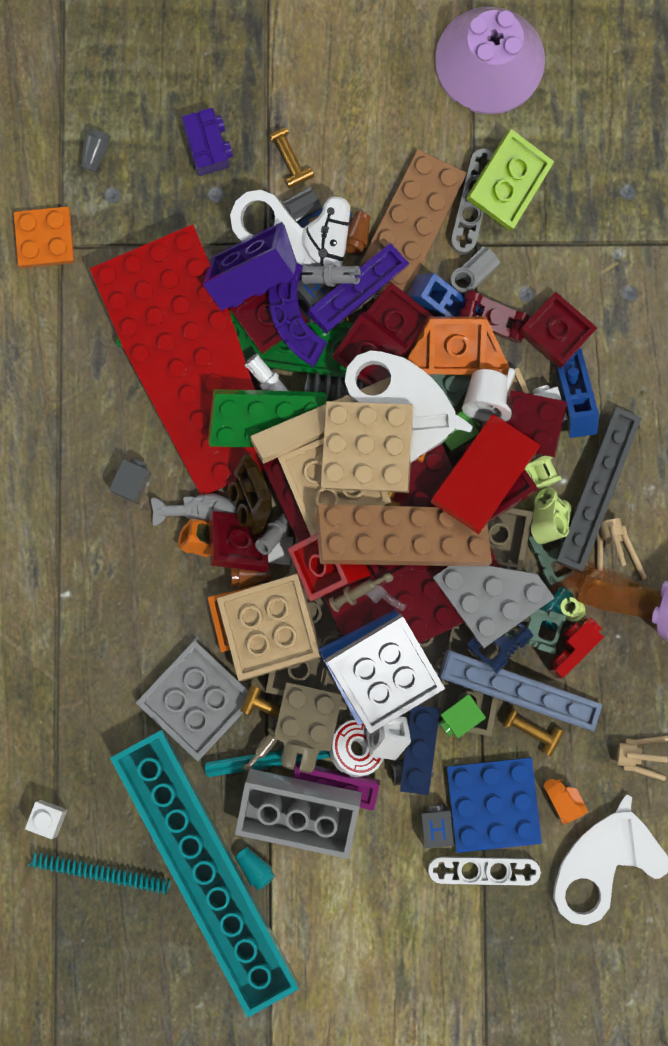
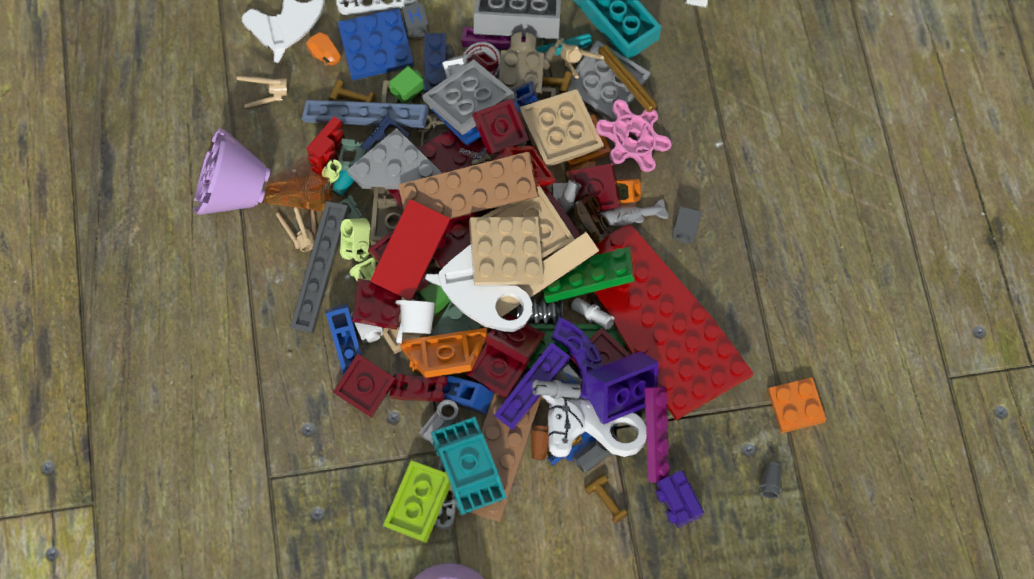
camera: 170 degrees right, 15 degrees down
(158, 607) = (641, 127): none -> bright pink plate
(168, 694) = (627, 79): none -> pearl gold axle
(219, 212) = (657, 433): none -> magenta plate
(234, 741) = (572, 55): none -> tan plant
(309, 676) = (525, 94): none -> clear blue plate
(350, 614) = (500, 127): none -> dark red plate
(355, 739) = (485, 61): none -> dark red tile
(448, 203) = (468, 465): none -> teal plate

